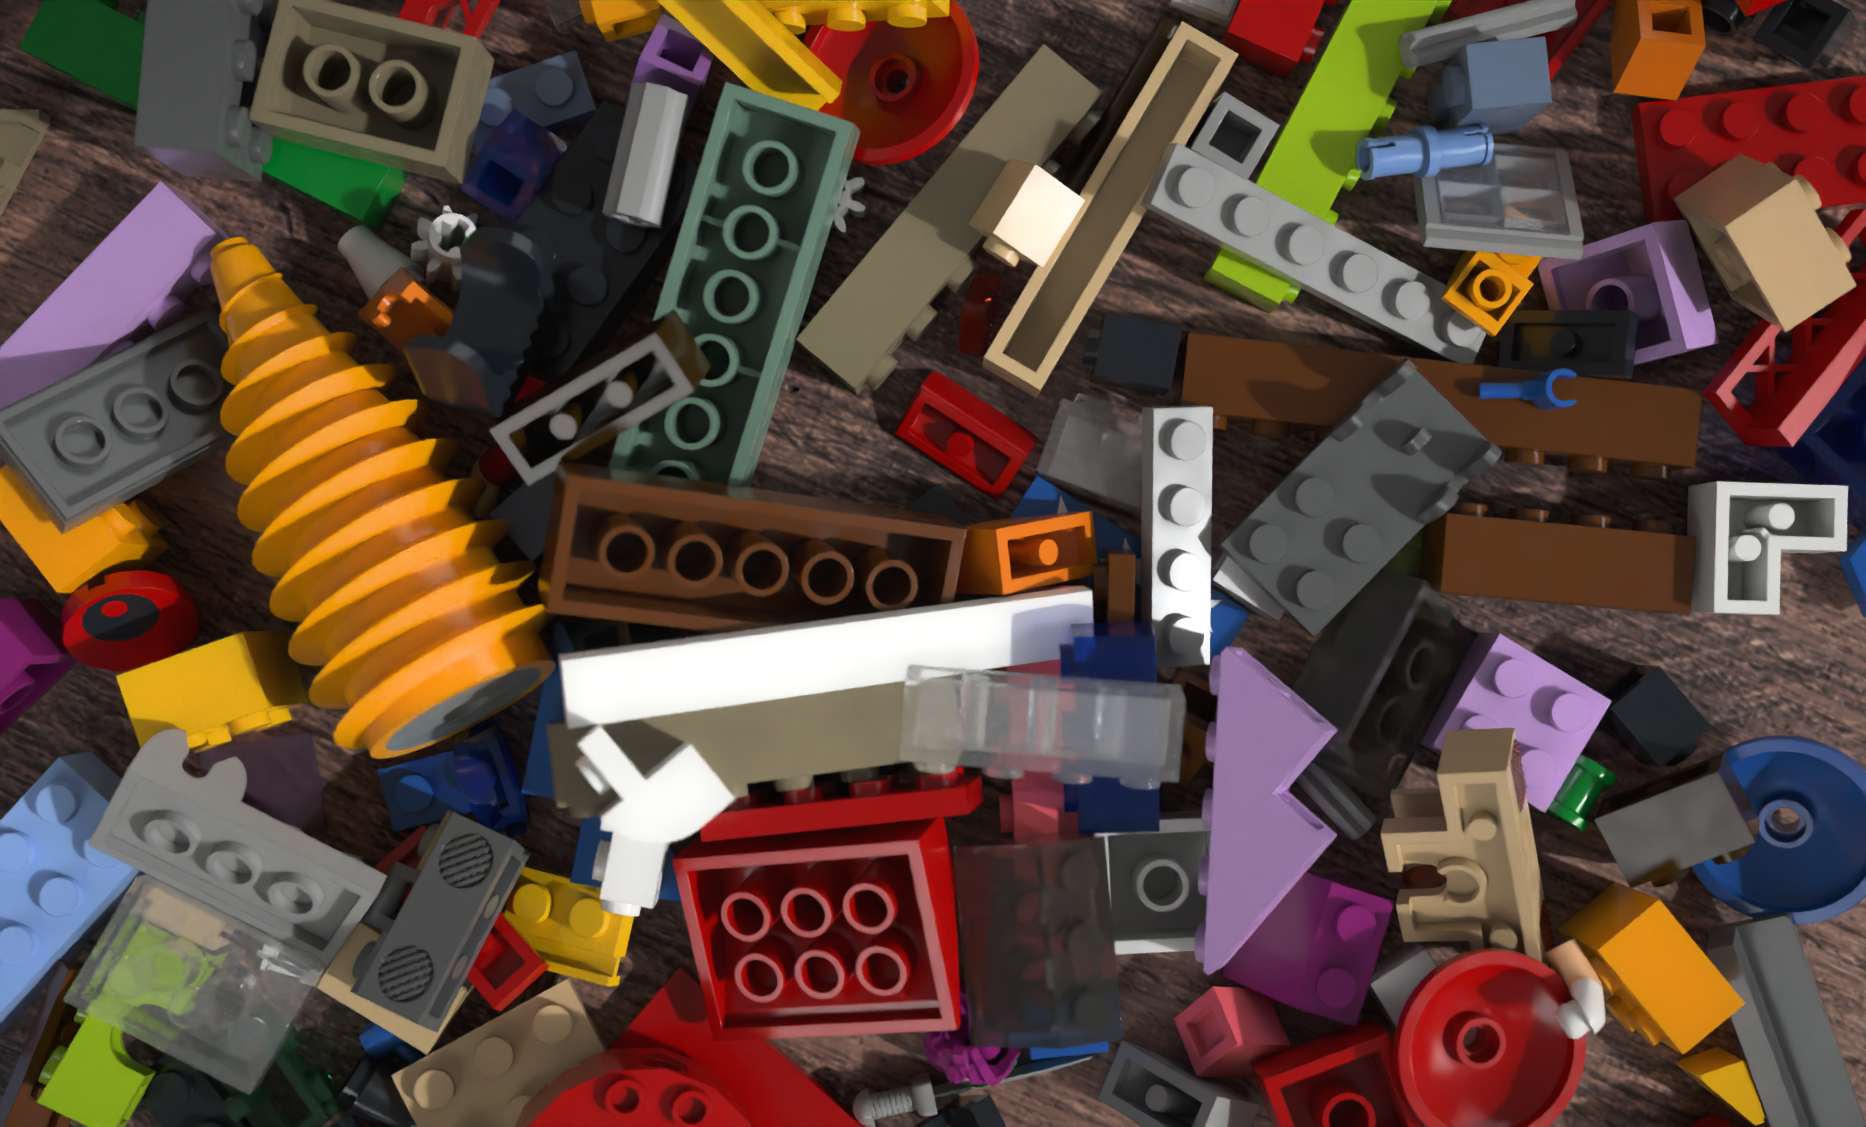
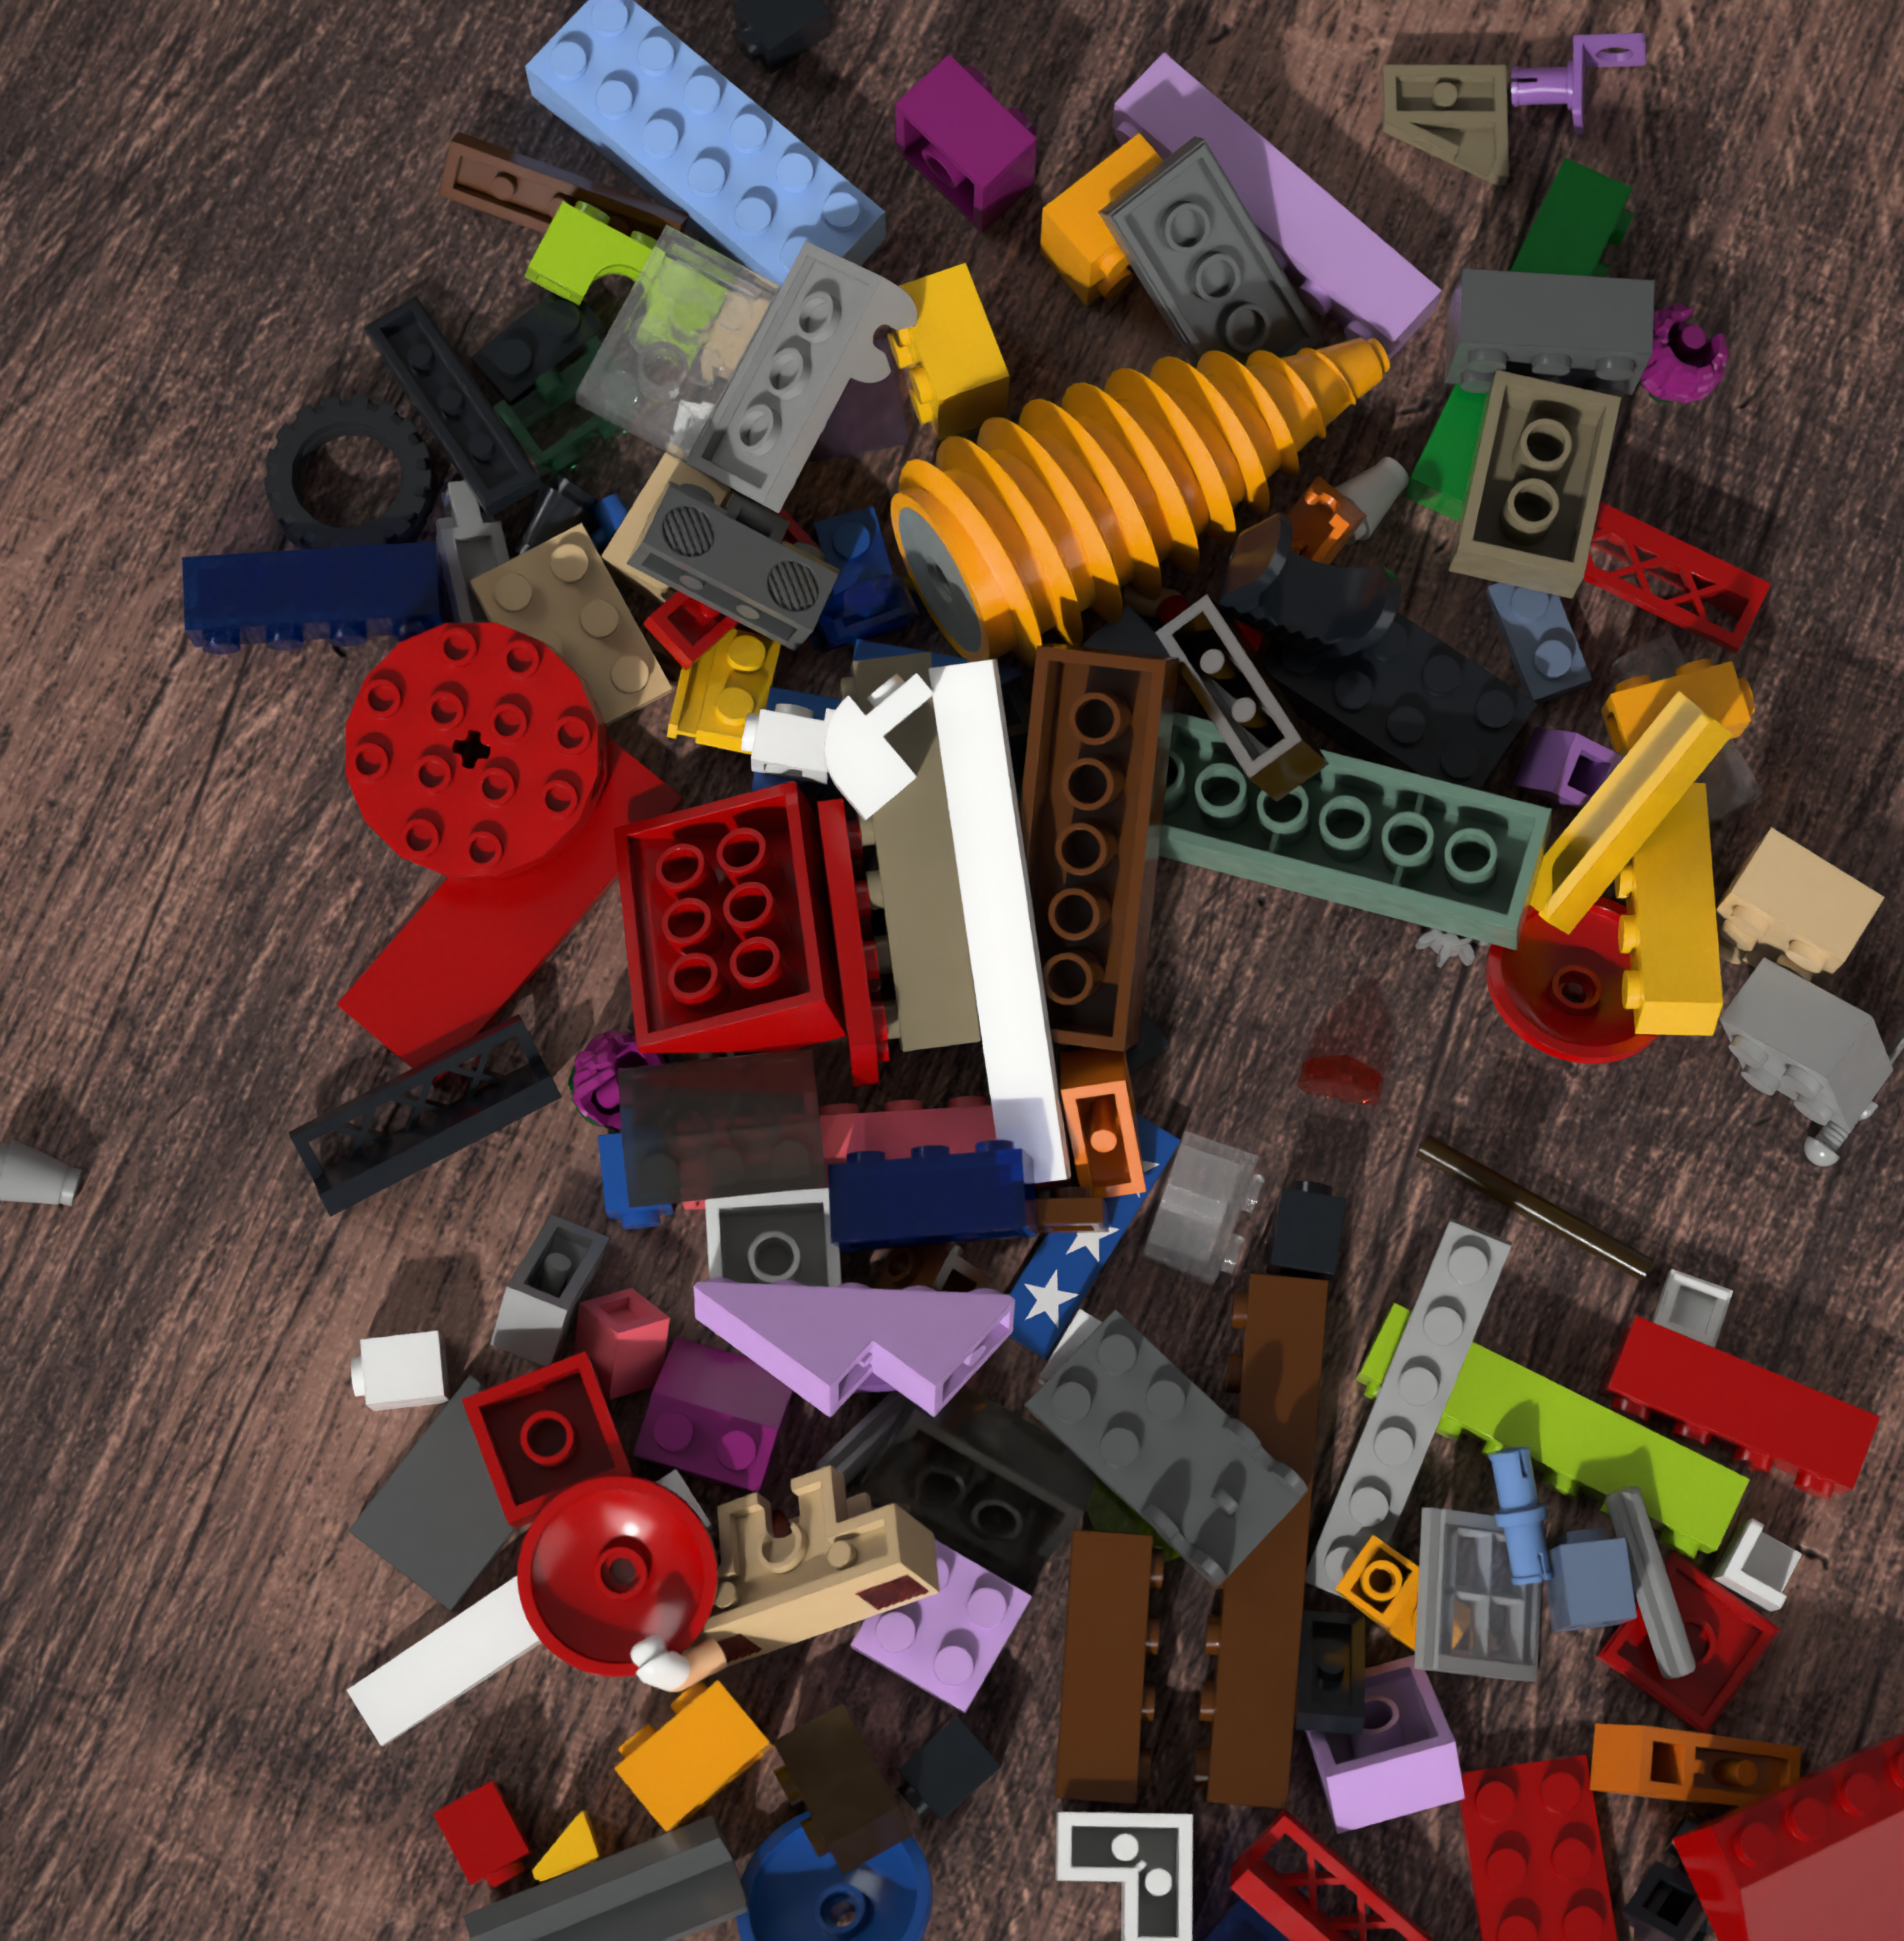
camera: 85 degrees right, 10 degrees down
(129, 621) = (1016, 271): red tile -> none
(443, 232) = (1404, 556): white gear -> none
(513, 165) = (1470, 619): clear blue brick -> none
(646, 155) = (1480, 740): light grey axle -> none
(922, 1096) = (555, 1038): light grey sword -> none
(931, 239) = (1432, 1048): dark tan brick -> none
(965, 435) = (1220, 1071): red slope -> none
(1025, 214) = (1438, 1110): brick -> none
(1042, 725) = (936, 1114): clear brick -> none
(1112, 210) = (1430, 1188): tan brick -> none
(1177, 531) = (1124, 1269): plate -> none
(1233, 135) = (1524, 1321): light grey brick -> none
(1537, 390) = (1280, 1620): blue hand -> none
(1580, 792) = (870, 1692): green bush -> none
(1767, 240) = (1441, 1862): tan brick -> none

